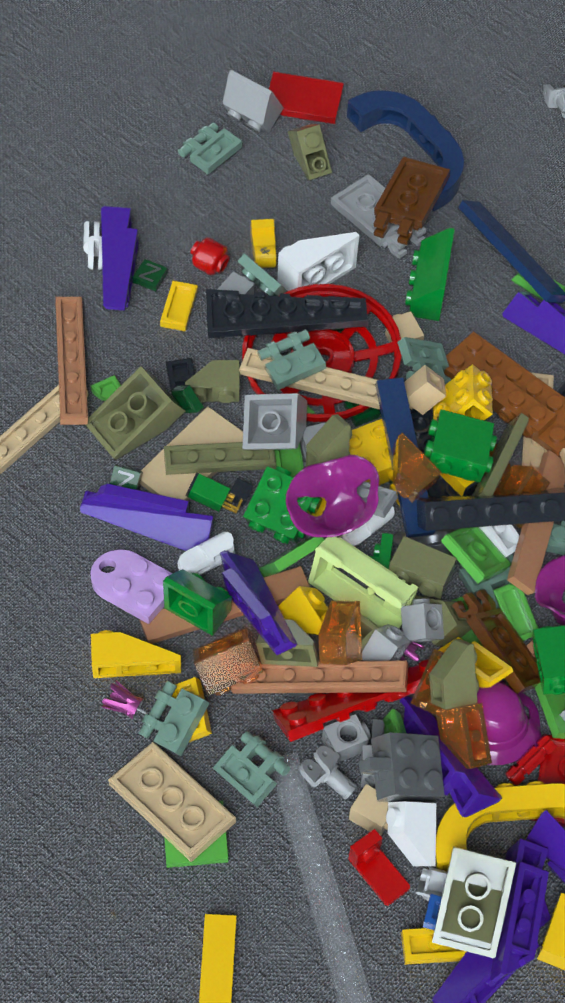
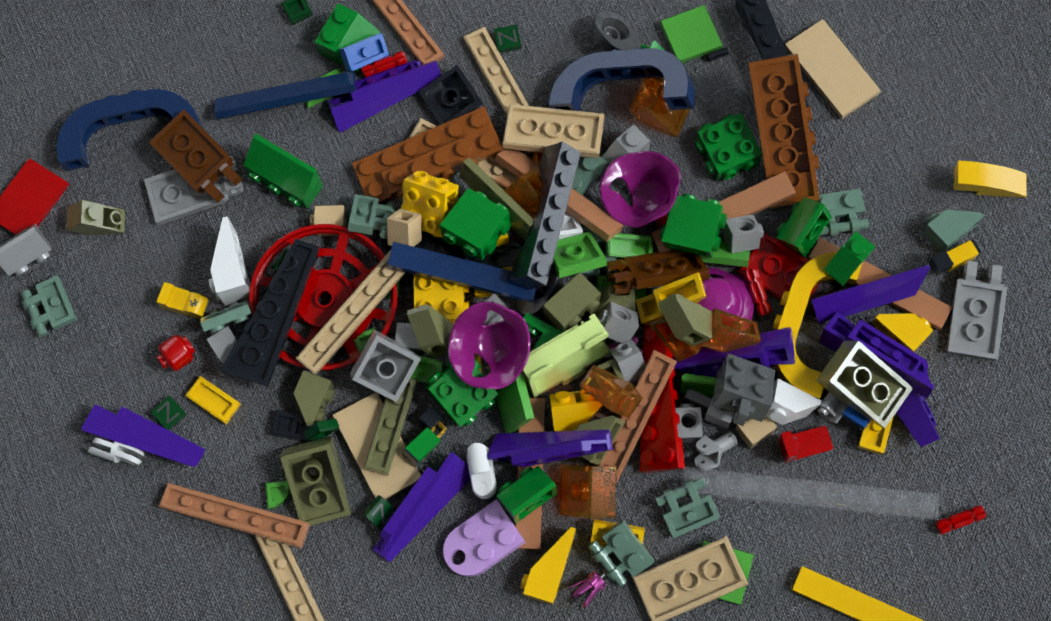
camera: 60 degrees left, 15 degrees up
(295, 365) = (336, 326): sand green plate -> none
(412, 469) = (483, 273): clear orange slope -> none

